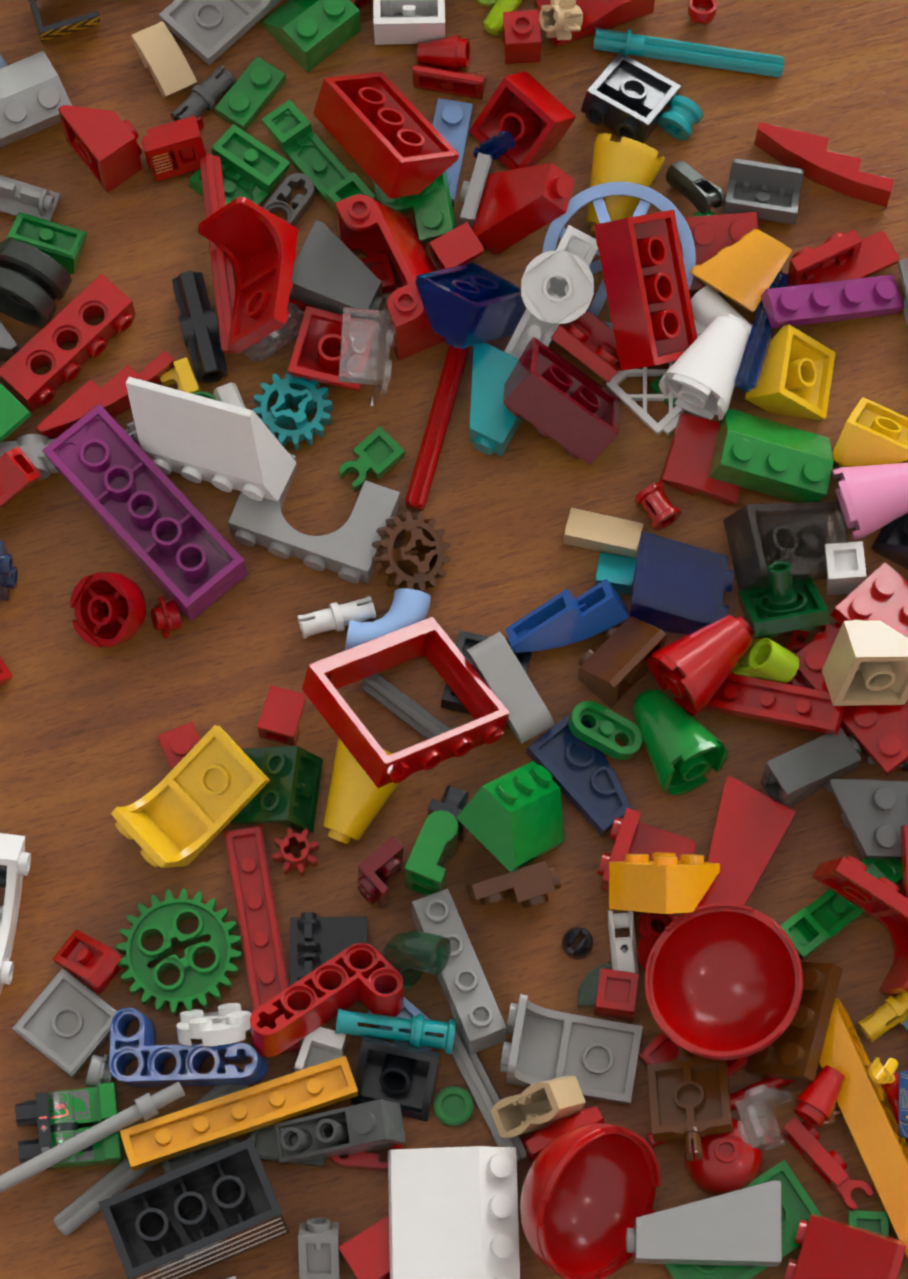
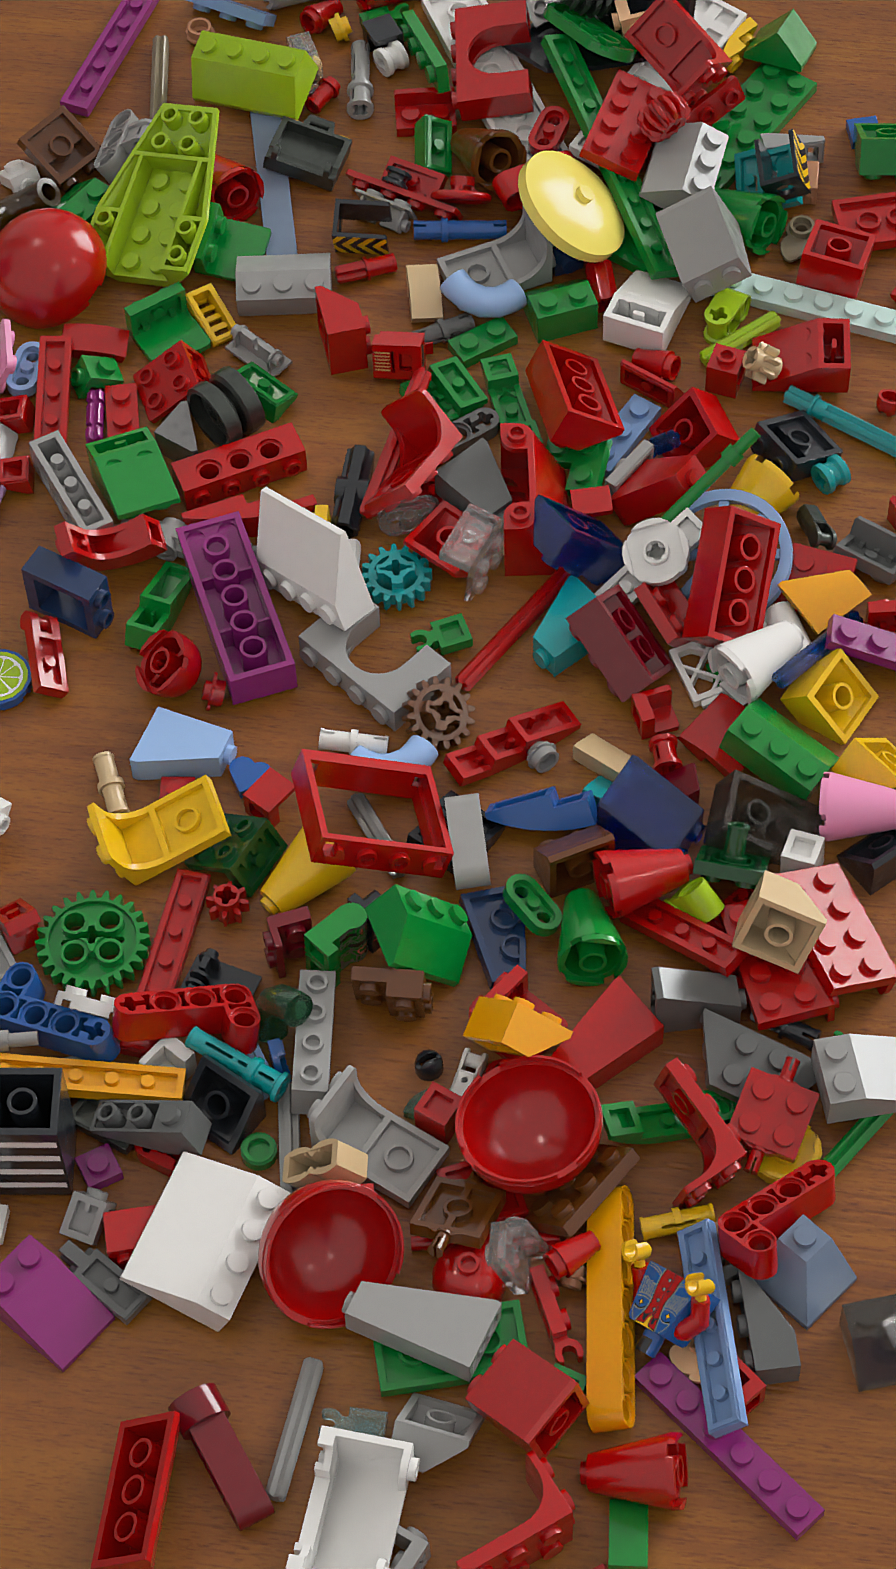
camera: 25 degrees right, 15 degrees down
(60, 540) = (159, 604): none -> green slope
(87, 52) = (366, 268): none -> red axle
(110, 766) = (110, 783): none -> tan pin
(164, 694) = (181, 748): none -> light blue slope
(234, 49) = (483, 300): none -> light blue cylinder
(245, 697) = (246, 773): none -> blue tile
(303, 1192) = (99, 1167): none -> magenta plate
(426, 1000) = (277, 1055): none -> blue tile
(497, 553) = (510, 744): none -> red slope
(534, 555) = (542, 756): none -> light grey plate
(595, 156) = (730, 457): none -> green bar
(624, 462) = (654, 712): none -> red panel
(688, 529) = (685, 780): none -> dark red slope

